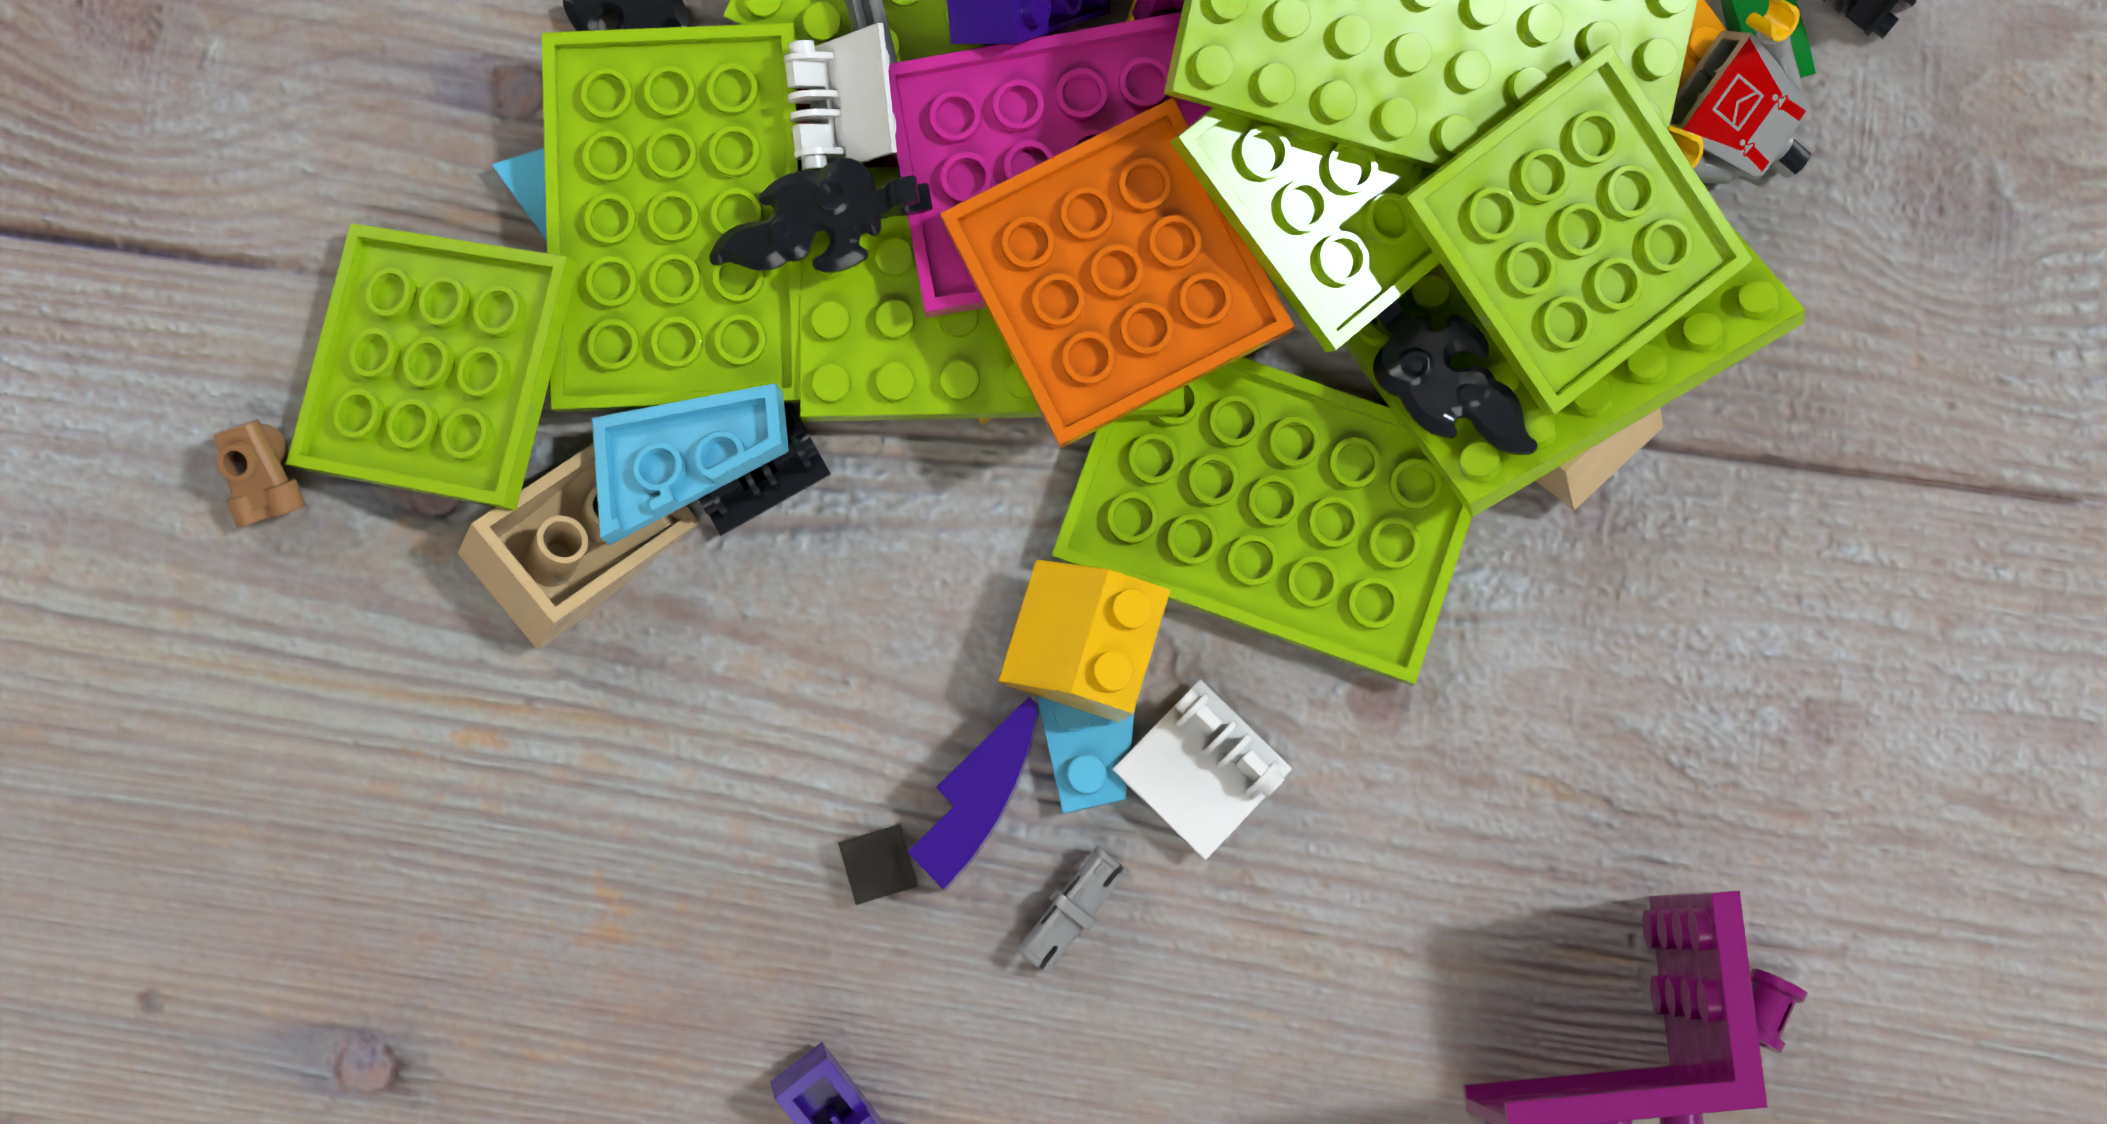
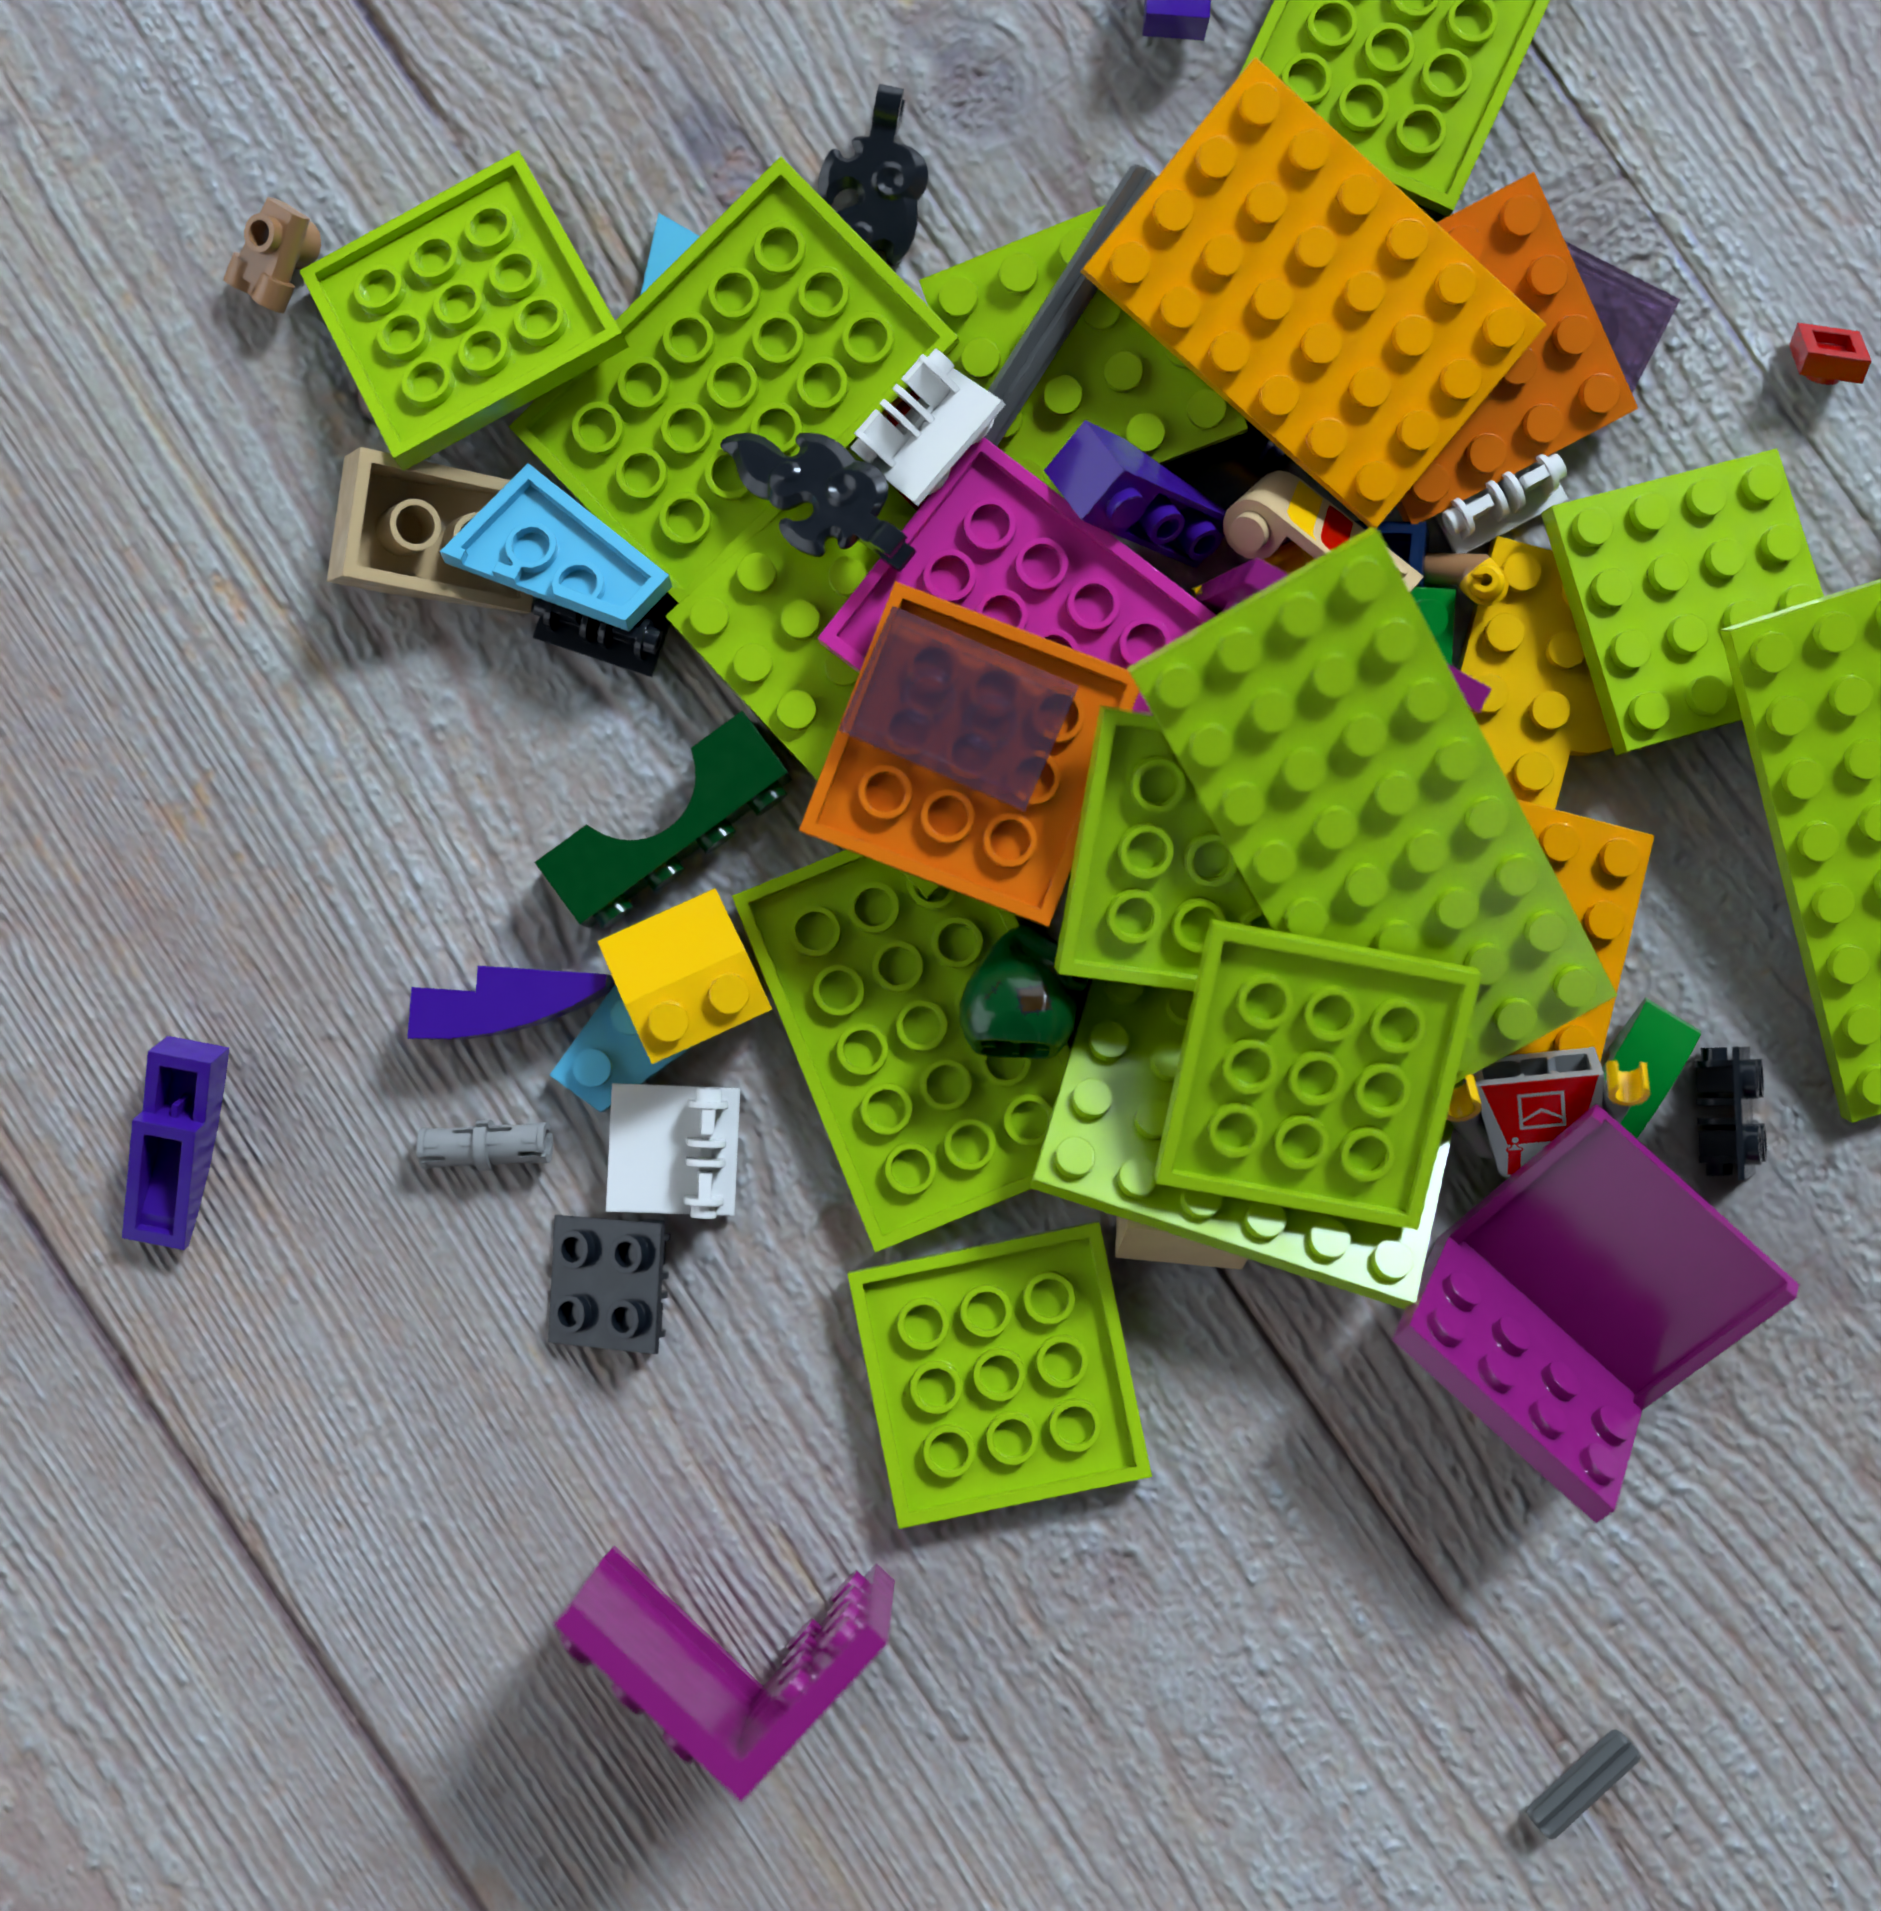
camera: 50 degrees right, 5 degrees up
(878, 864) = (391, 971): clear smoke plate -> none
(944, 637) = (601, 873): none -> dark green arch
(1077, 248) = (958, 708): none -> tile
(1260, 908) = (608, 1283): none -> black hinge
(1323, 404) = (1018, 1000): none -> dark green piece
(1434, 393) = (1100, 1078): black piece -> none
(1587, 674) = (999, 1374): none -> lime plate
(1773, 1006) = (862, 1725): magenta bush -> none
(1906, 187) = (1584, 1303): none -> magenta bracket

